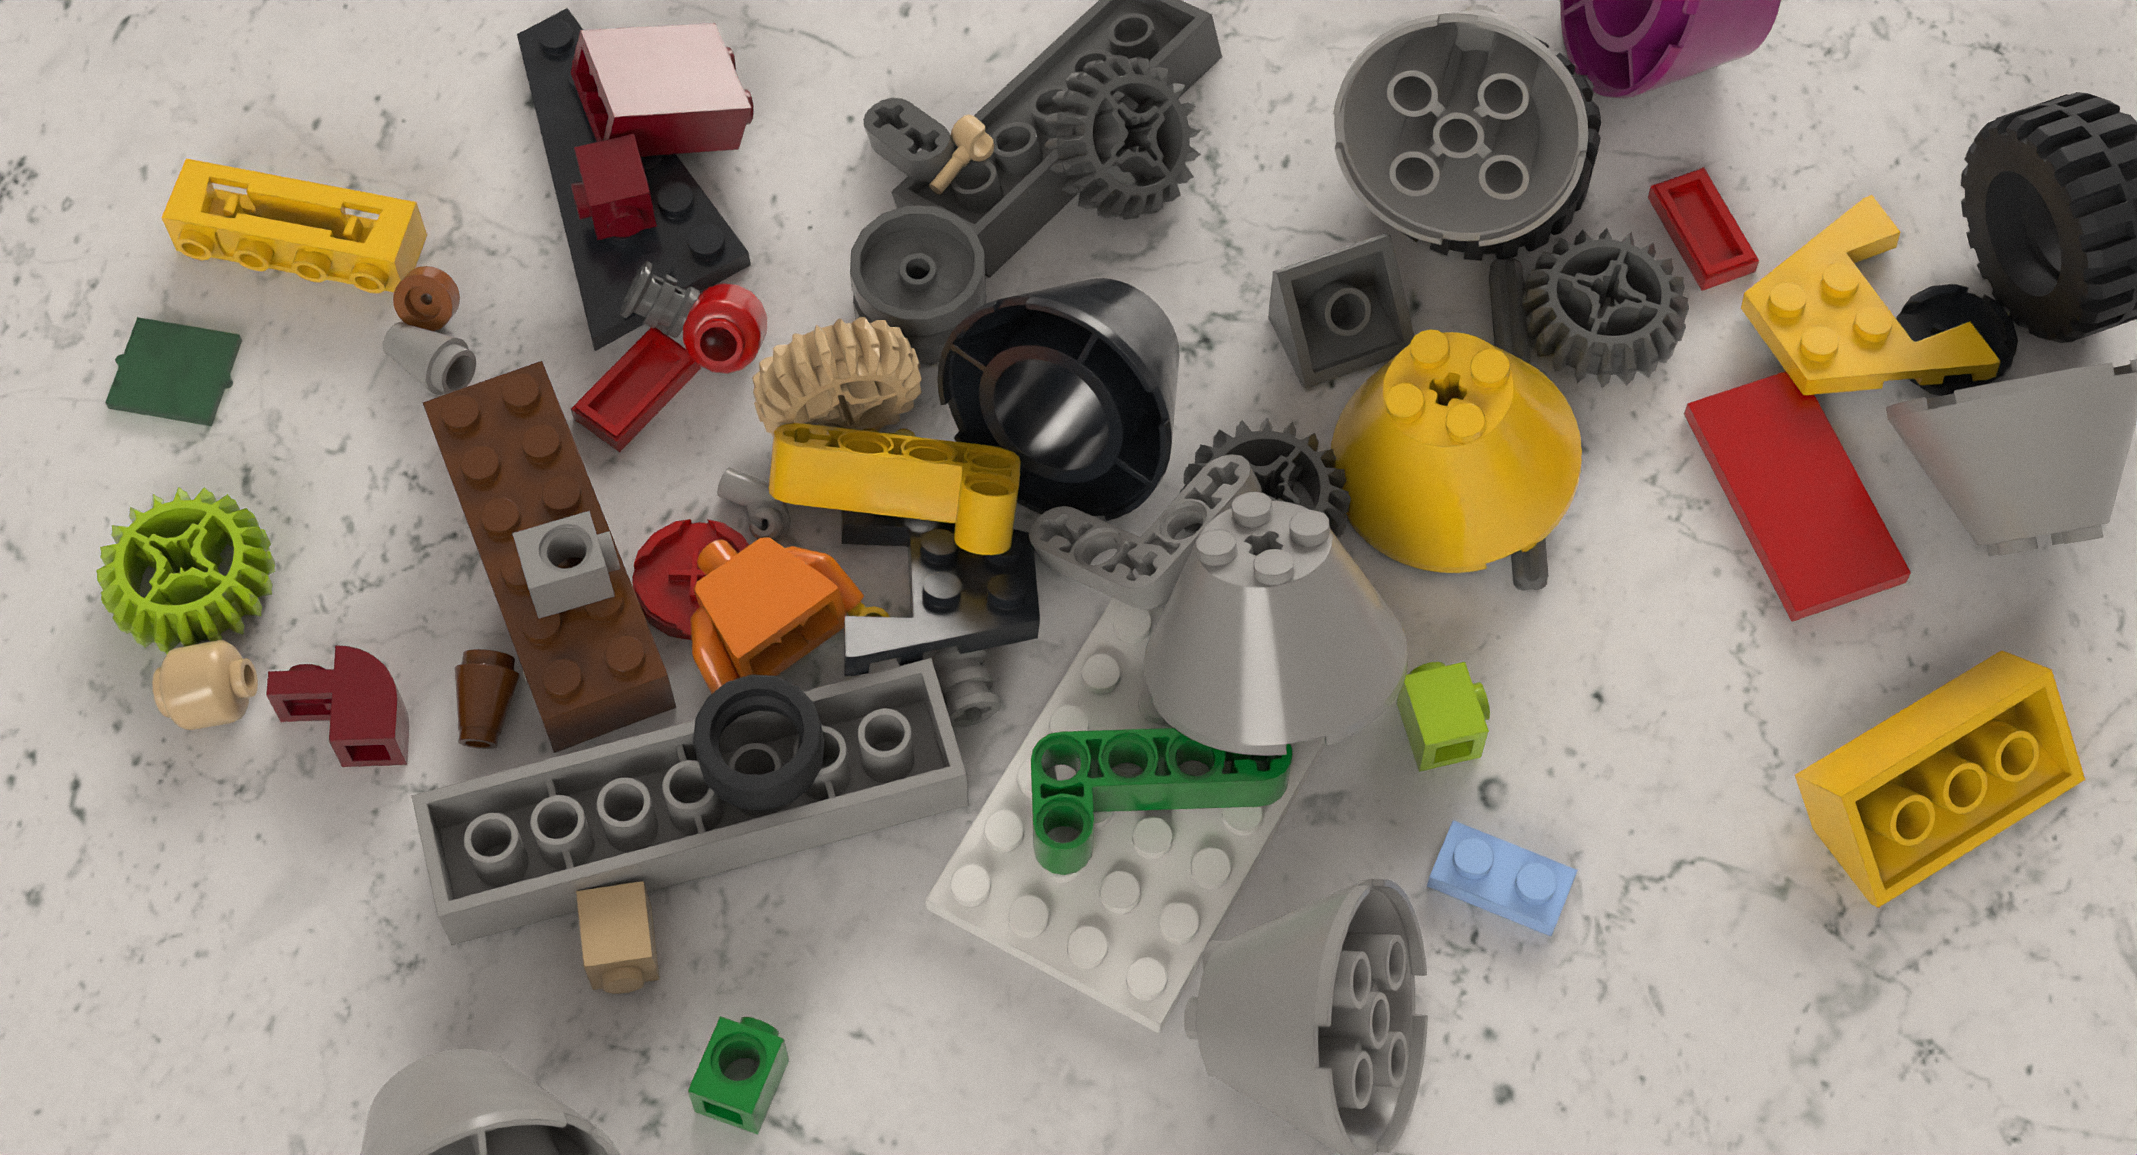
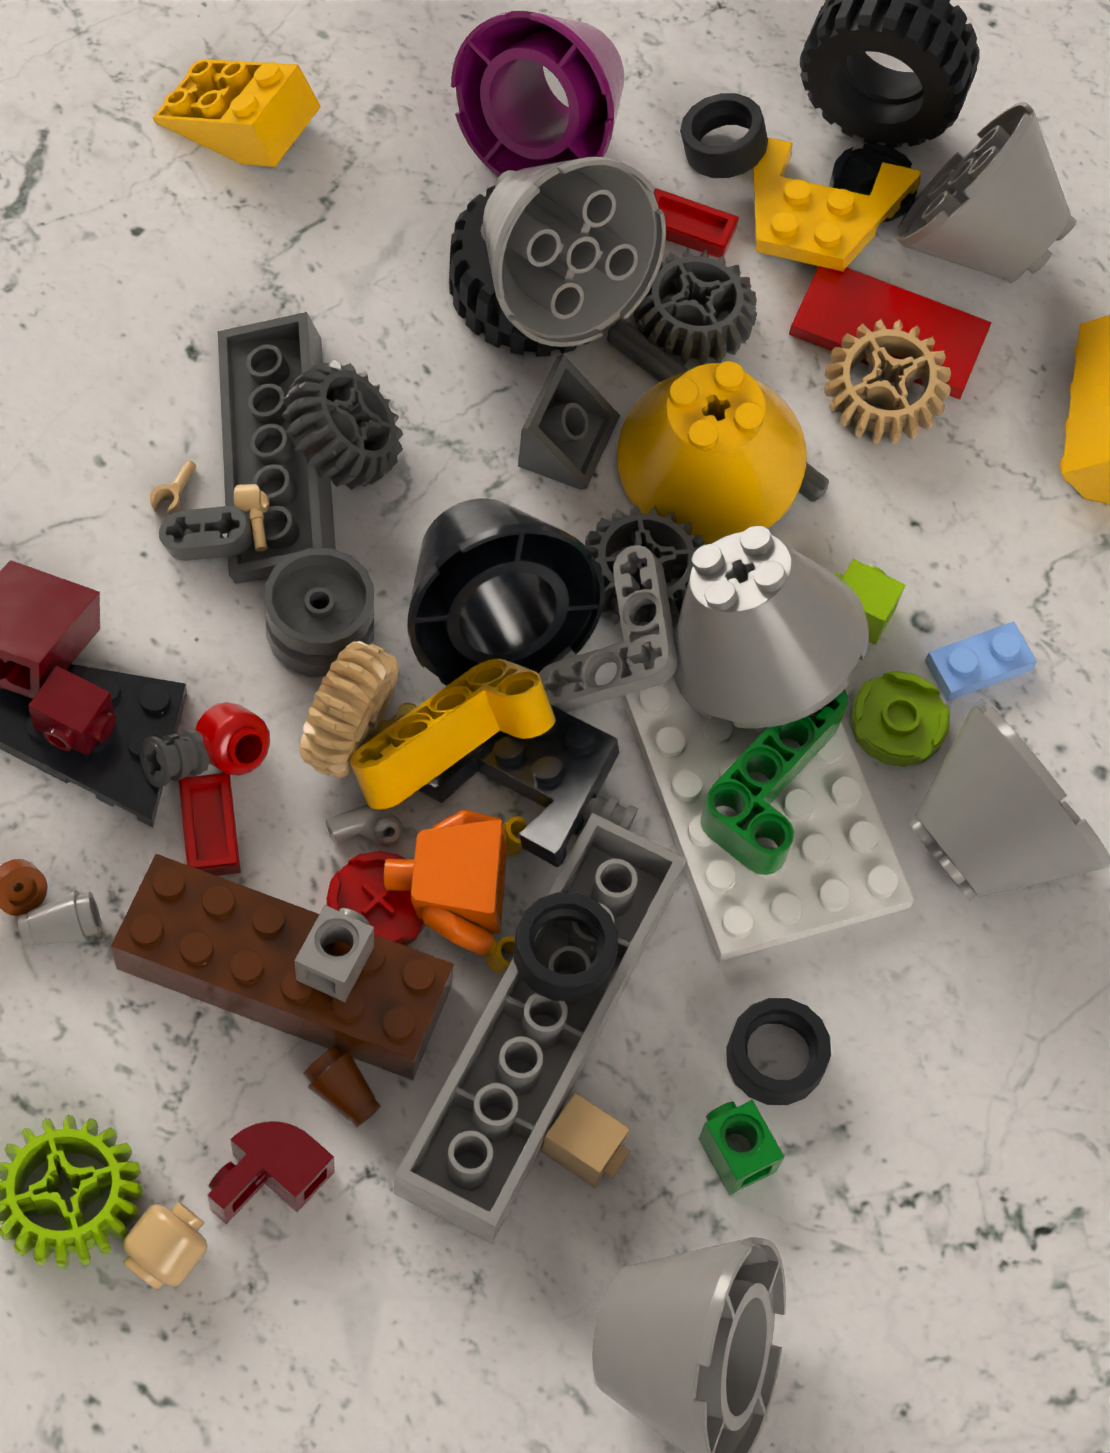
camera: 55 degrees left, 0 degrees up
(855, 982) = (805, 1023): none -> black tyre
(921, 96) = (174, 490): none -> tan hand
(1351, 841) = (899, 719): none -> lime tile
(1668, 514) = (876, 349): none -> tan gear
(1822, 198) = (717, 112): none -> black tyre

